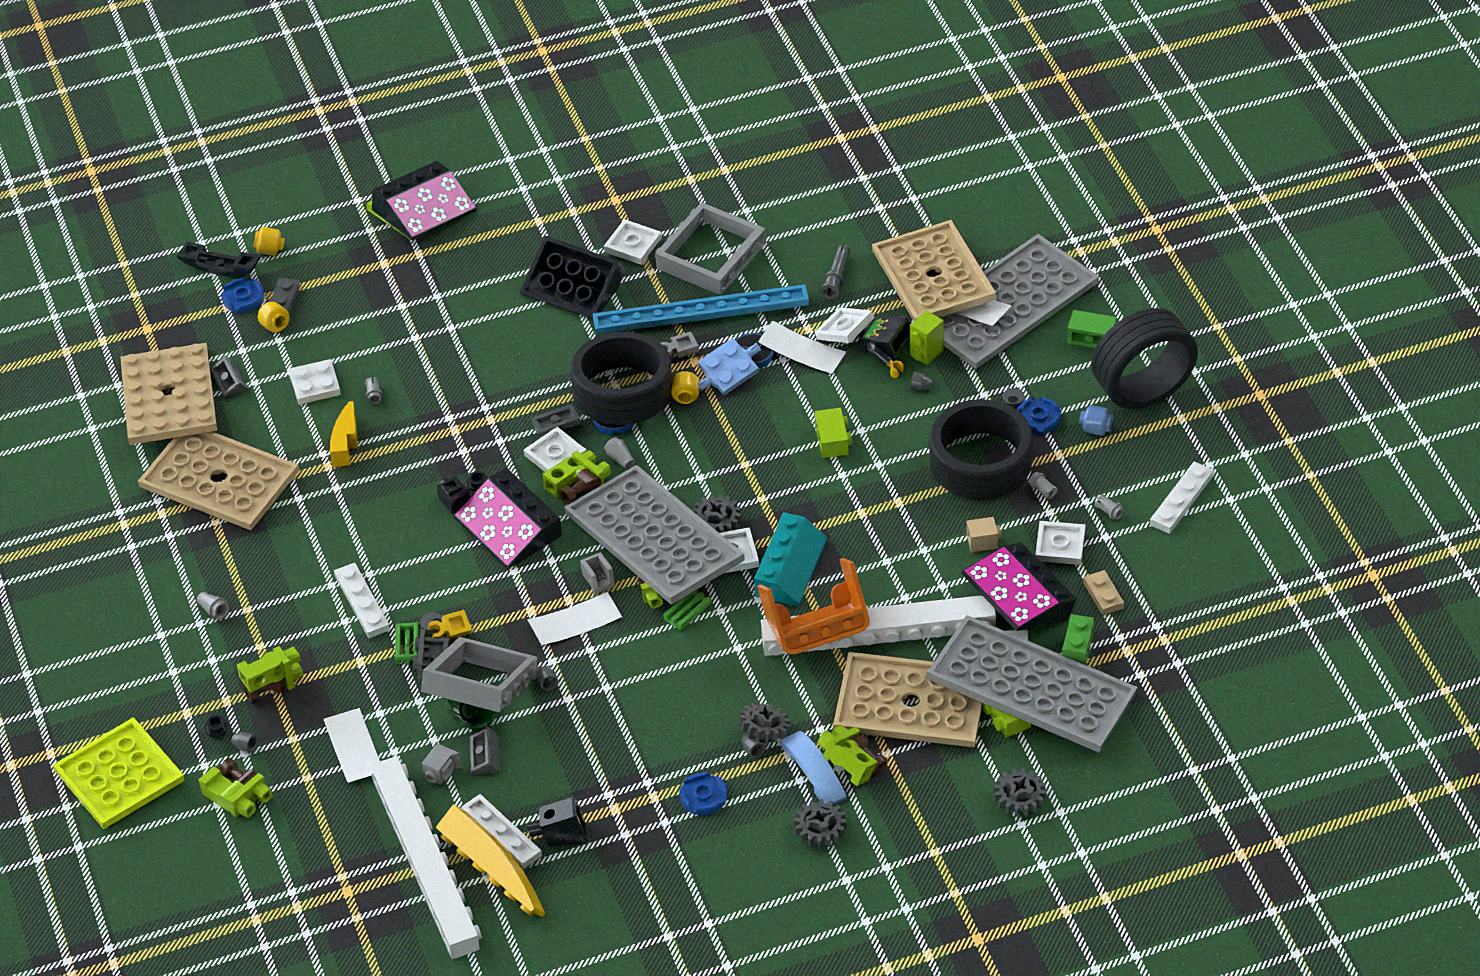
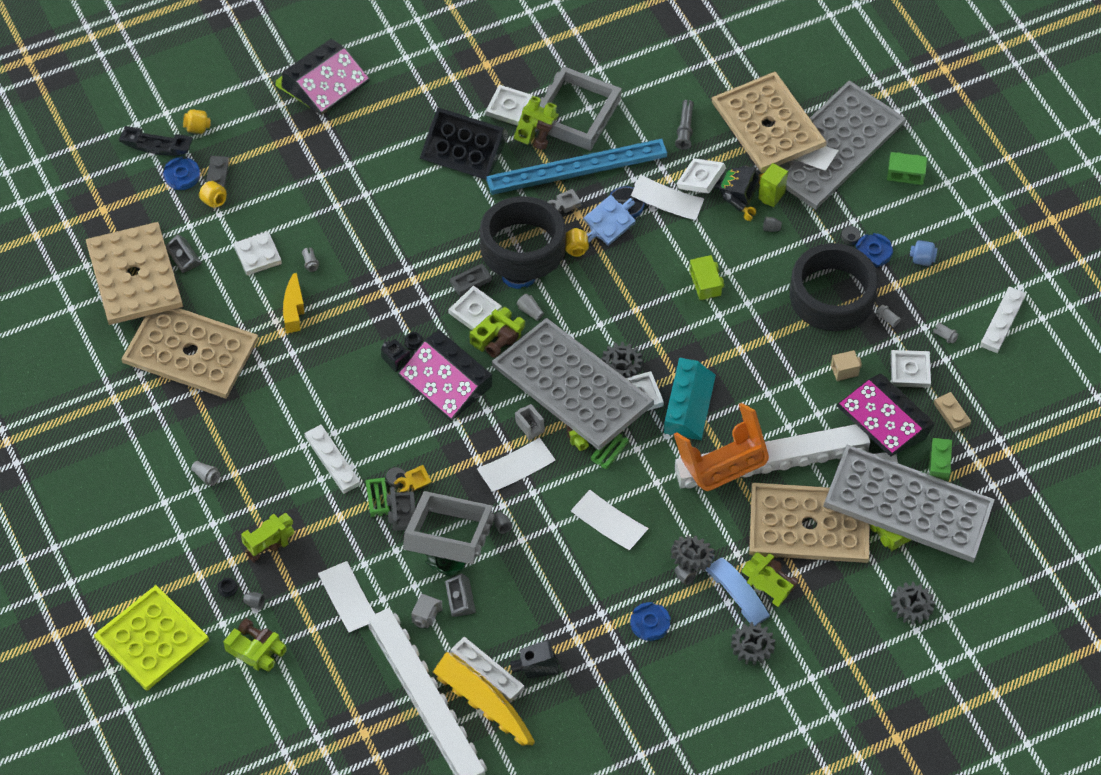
camera: 10 degrees left, 10 degrees up
(656, 252) = (534, 117): none -> lime hips
(673, 684) = (609, 520): none -> white sticker
(1130, 338) = (961, 199): black tyre -> none

